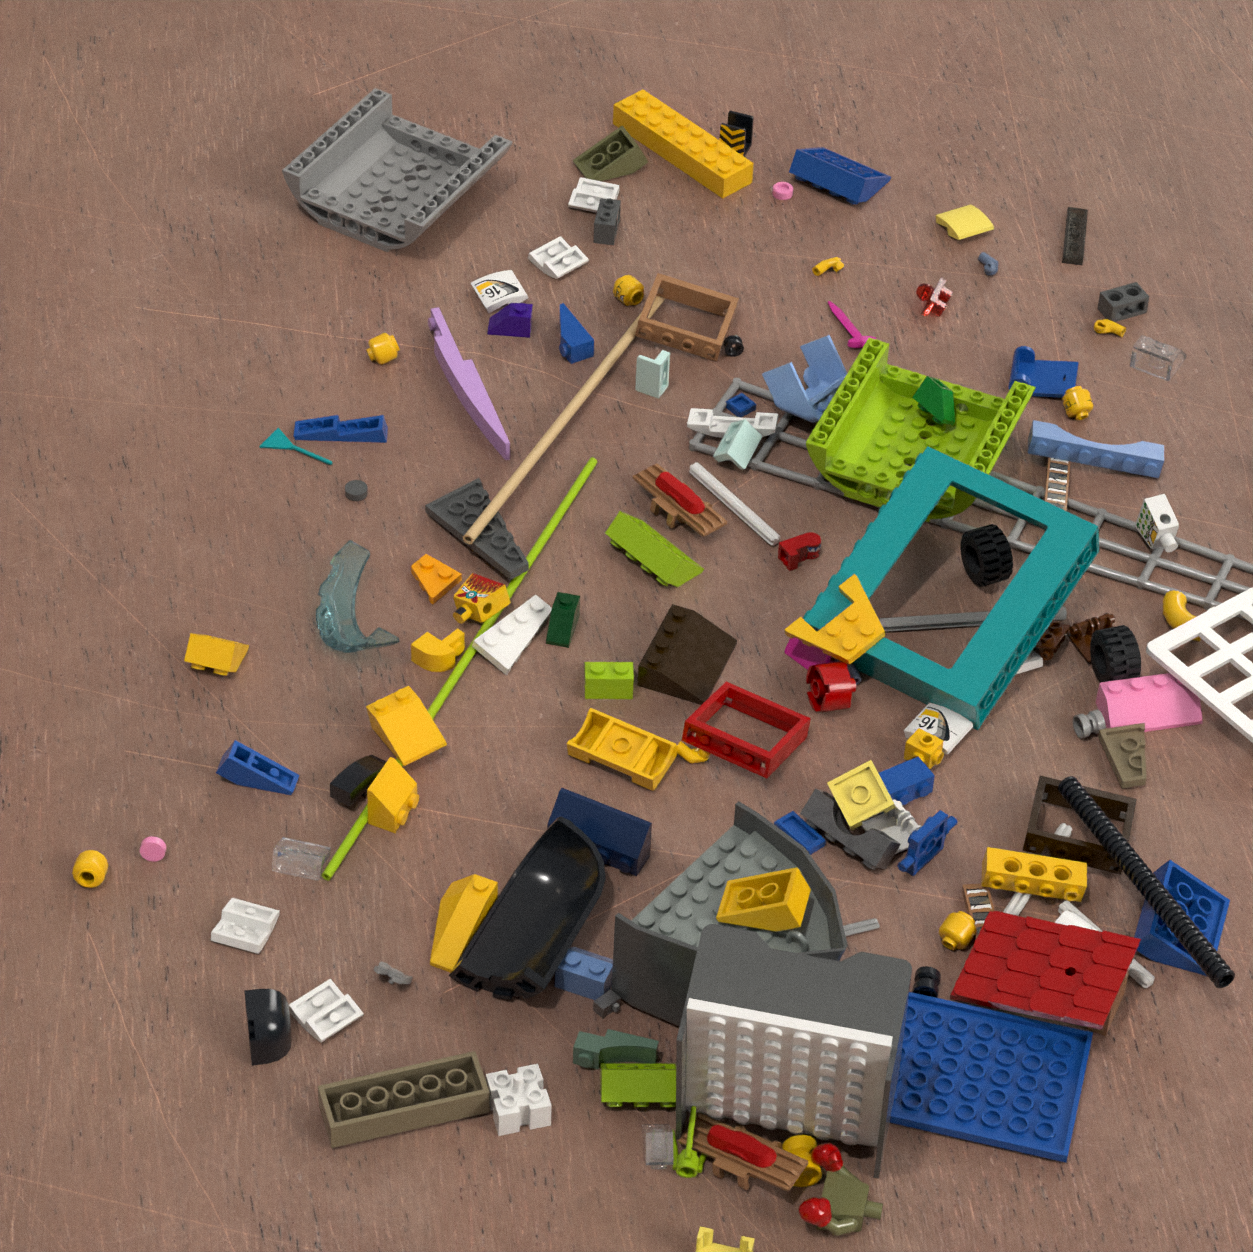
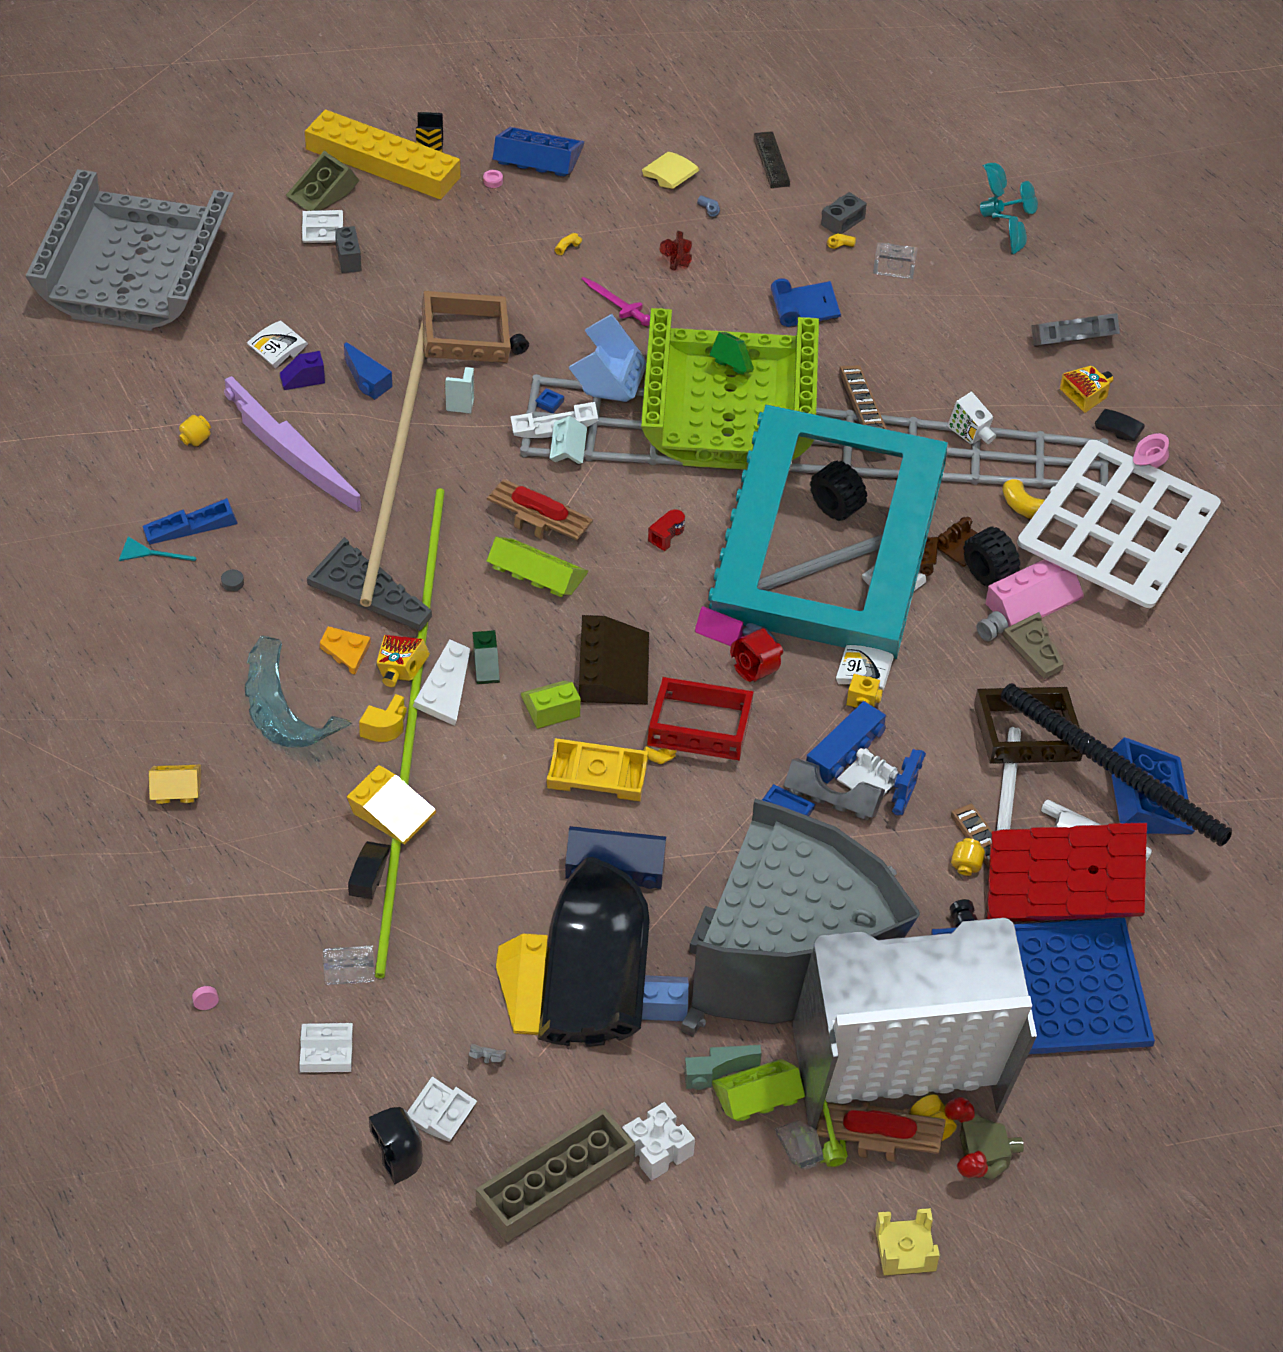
camera: 20 degrees left, 5 degrees up
(90, 869) = (154, 1036): yellow head -> none
(255, 770) = (263, 889): blue slope -> none
(391, 797) = (410, 880): yellow slope -> none
(557, 258) = (316, 297): white slope -> none
(628, 290) = (398, 313): yellow head -> none
(734, 504) = (587, 499): white axle -> none
(766, 900) = (822, 888): yellow slope -> none
(849, 632) = (759, 600): yellow wing -> none
(861, 794) = (835, 753): light yellow panel -> none
(1034, 874) = (1012, 784): yellow brick -> none
(1077, 403) = (848, 321): yellow head -> none
(1135, 458) = (848, 365): medium blue arch -> none

